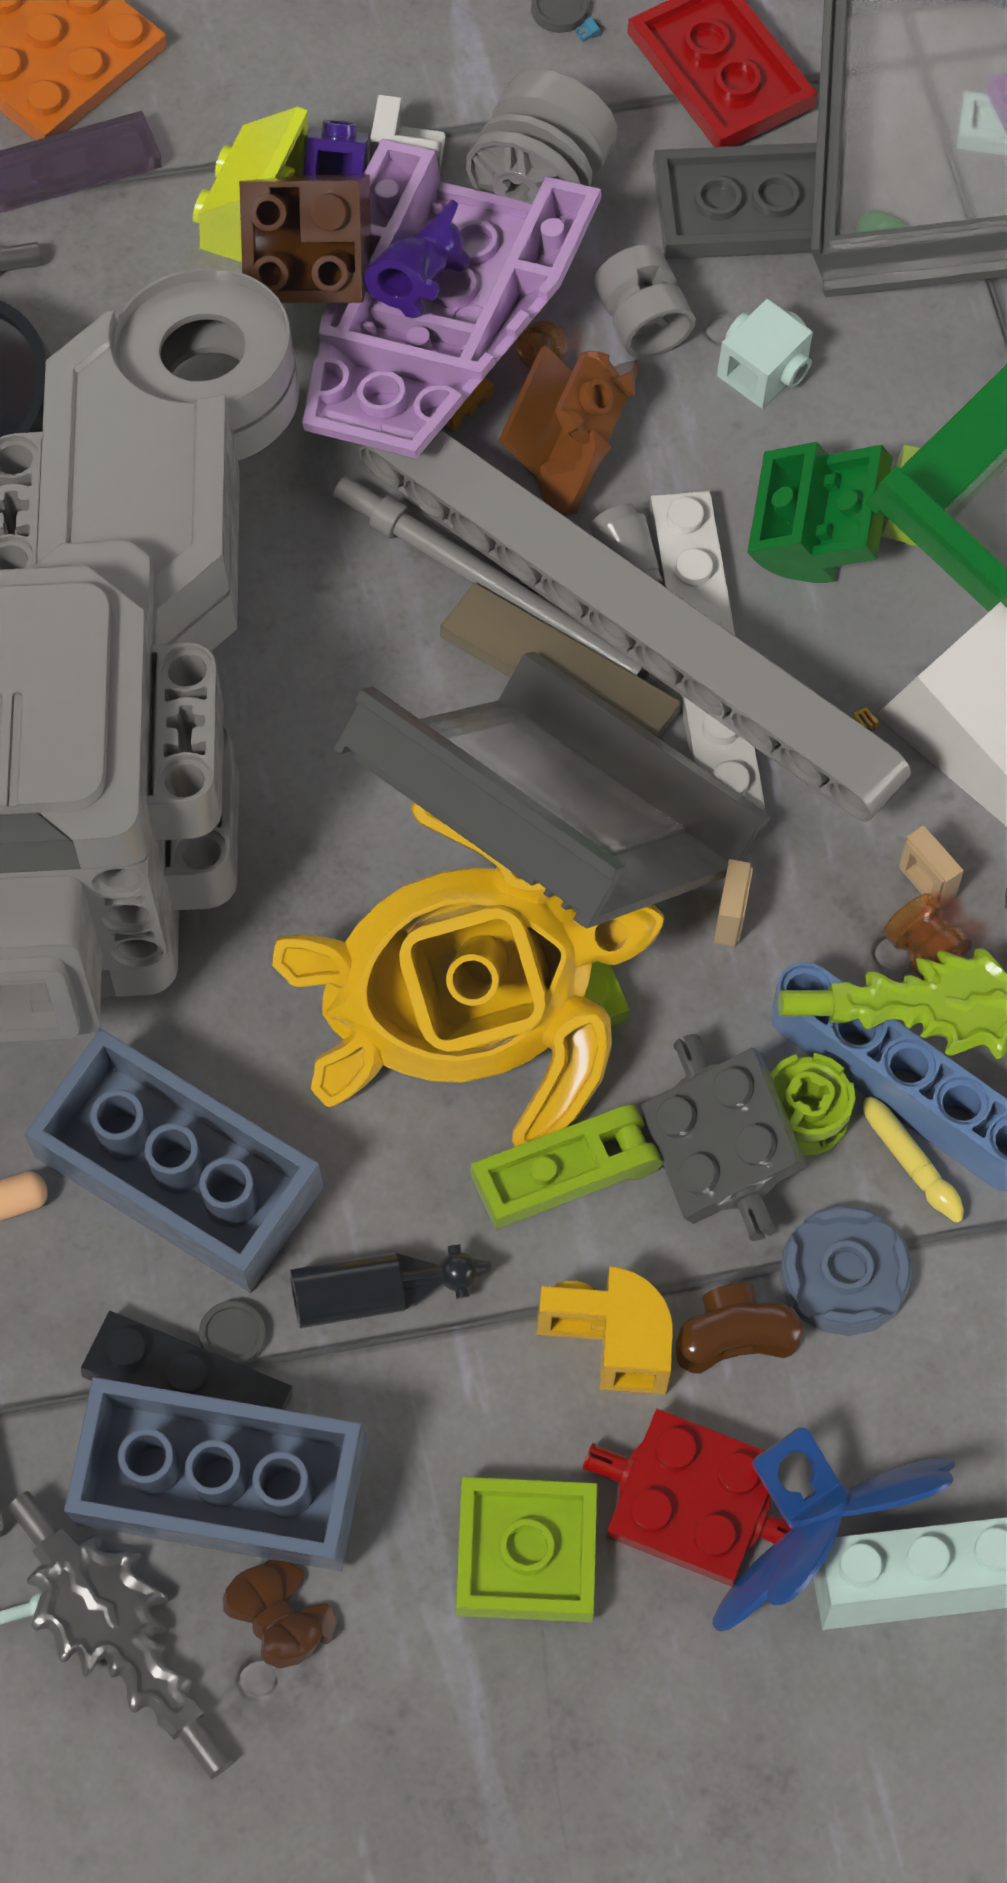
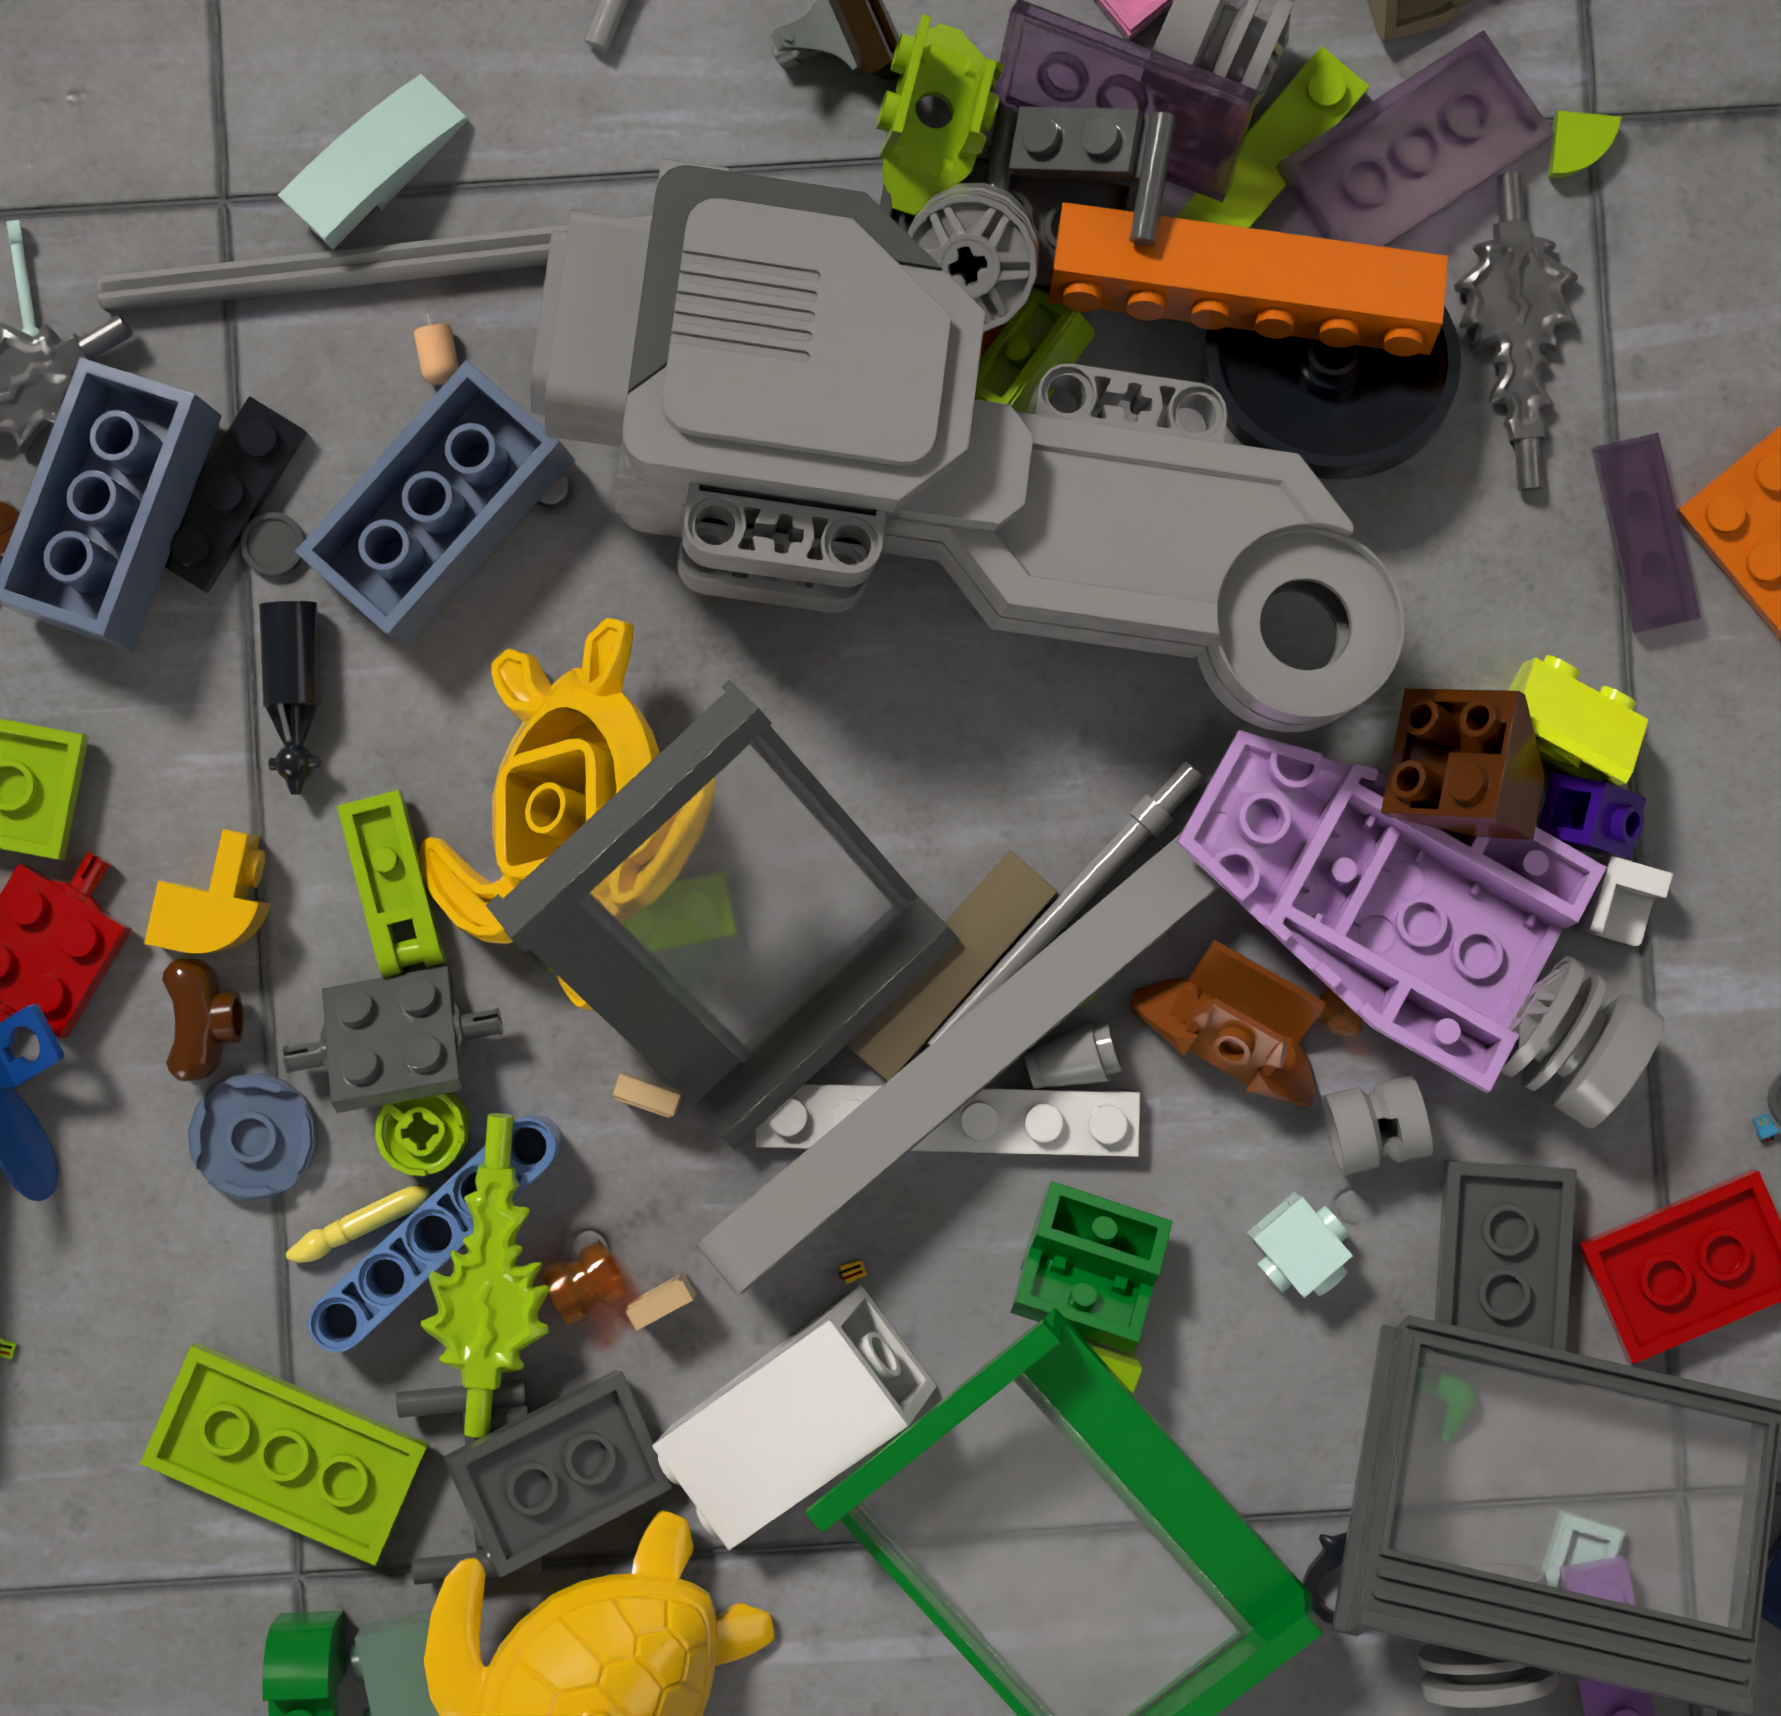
camera: 105 degrees right, 25 degrees up
(412, 265) = (1422, 872): dark purple animal -> none

